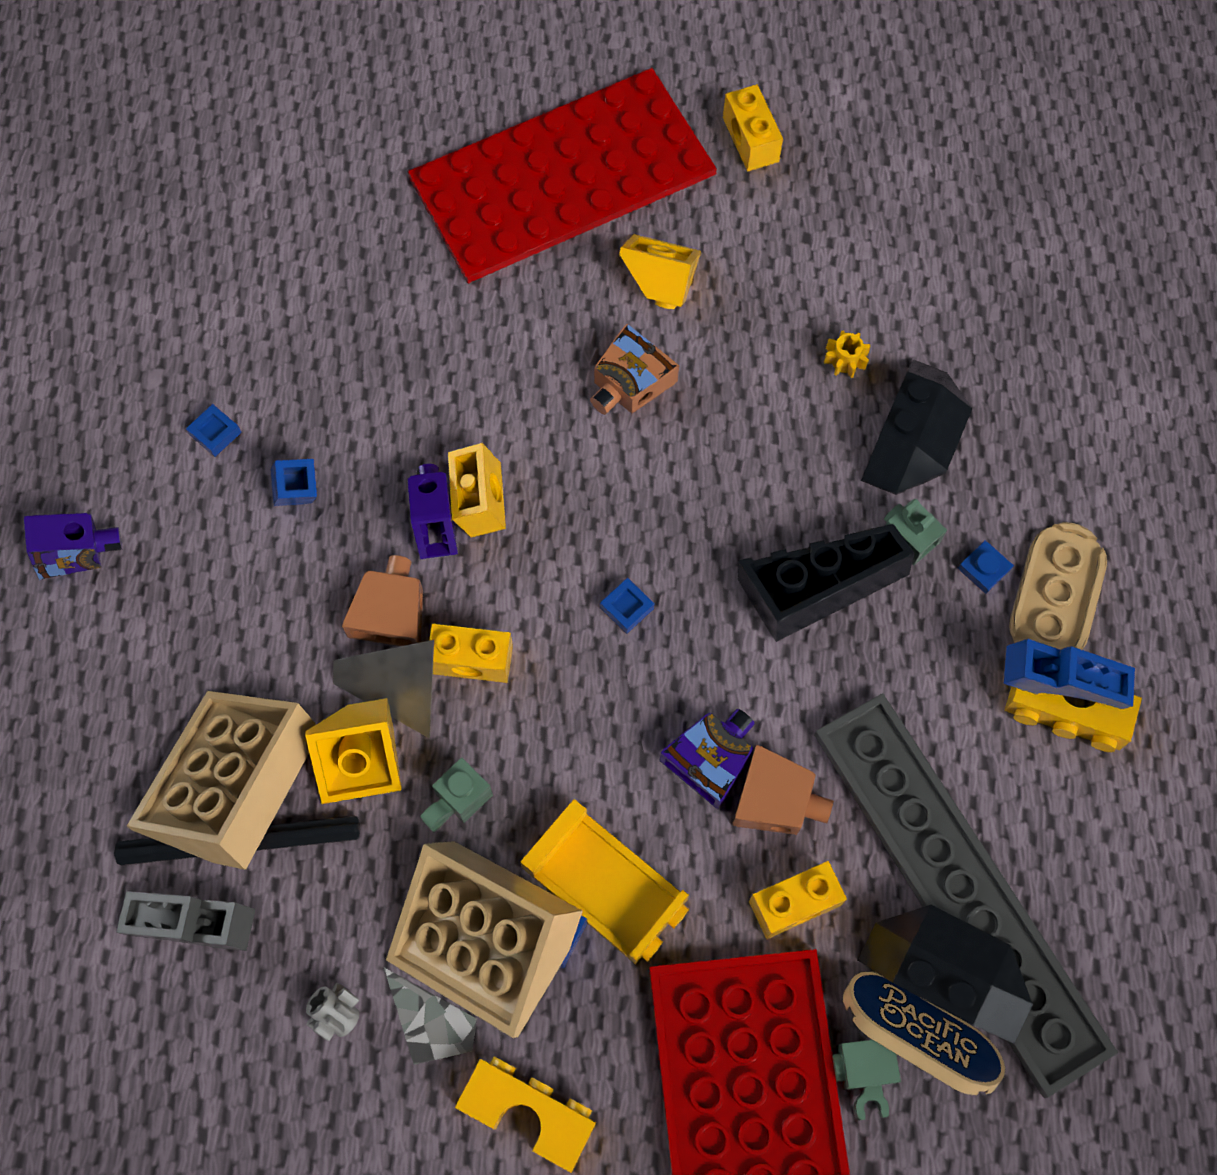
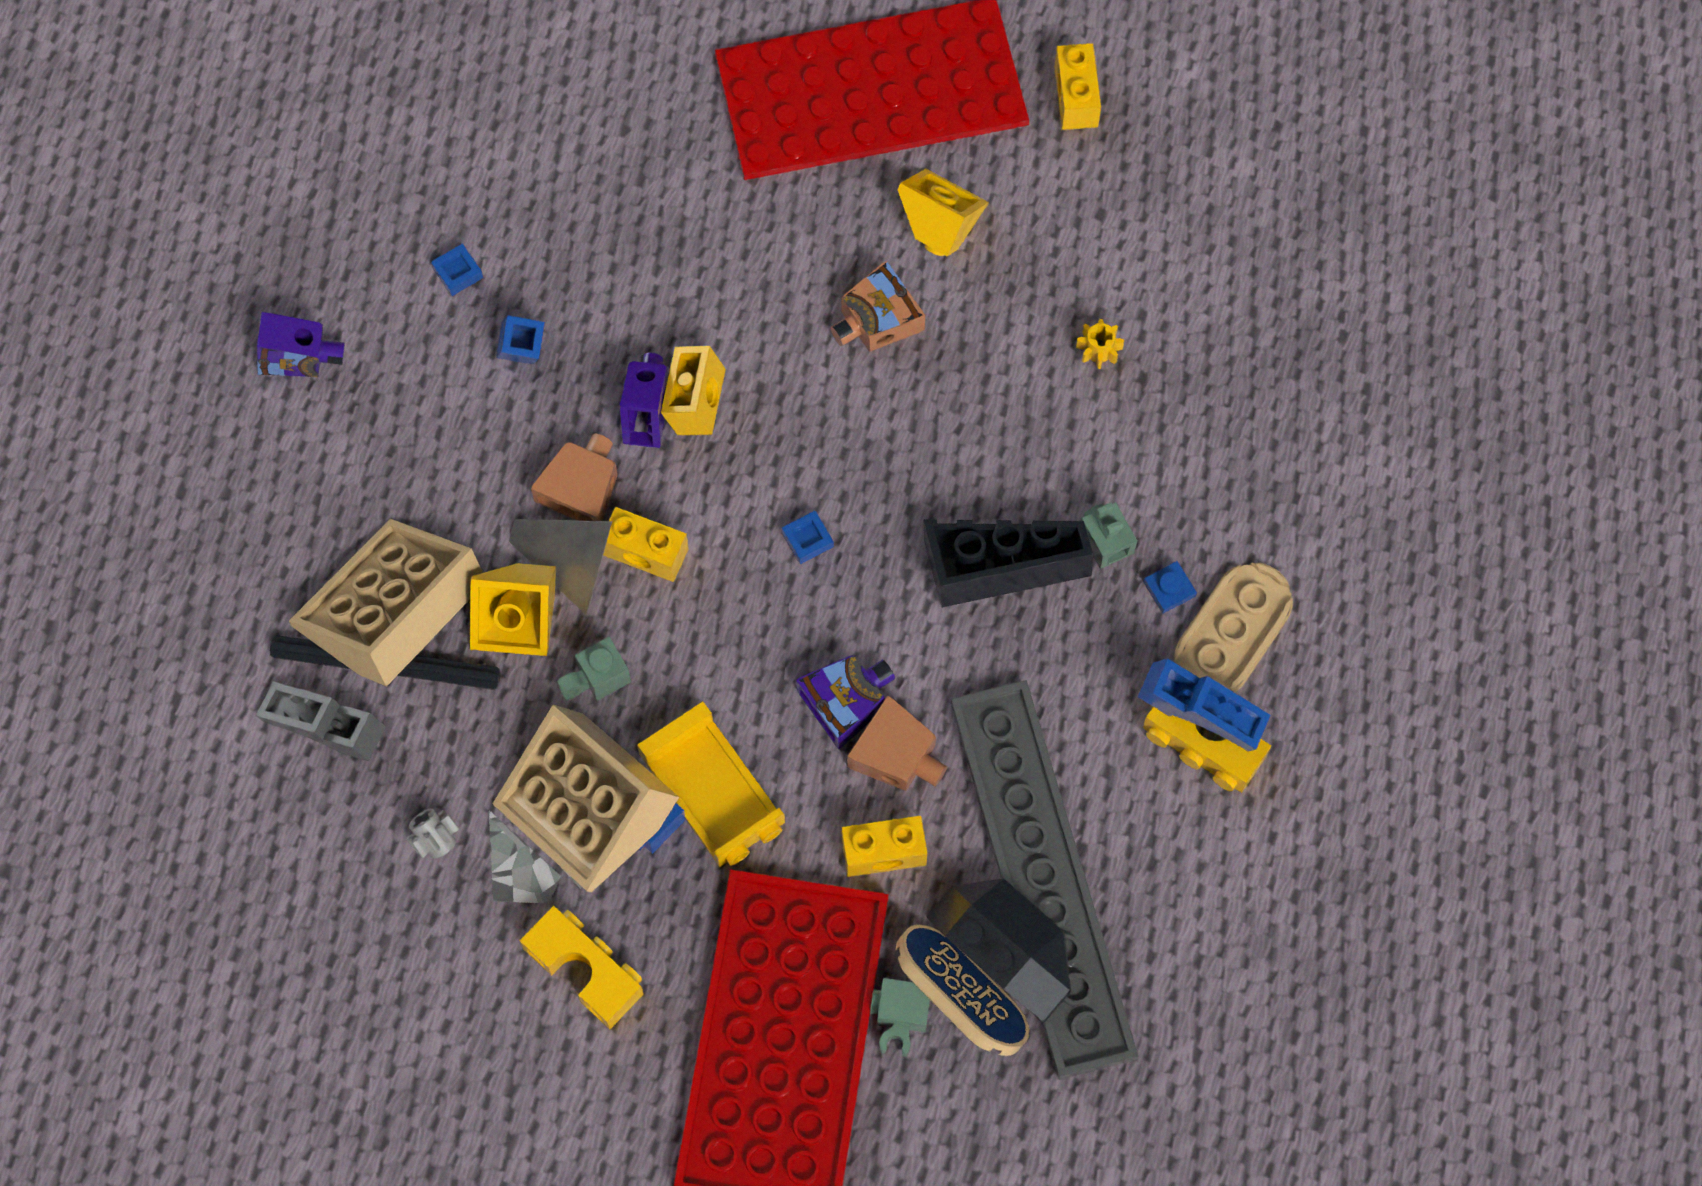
camera: 15 degrees right, 0 degrees up
(918, 431) = (1146, 436): black wedge -> none

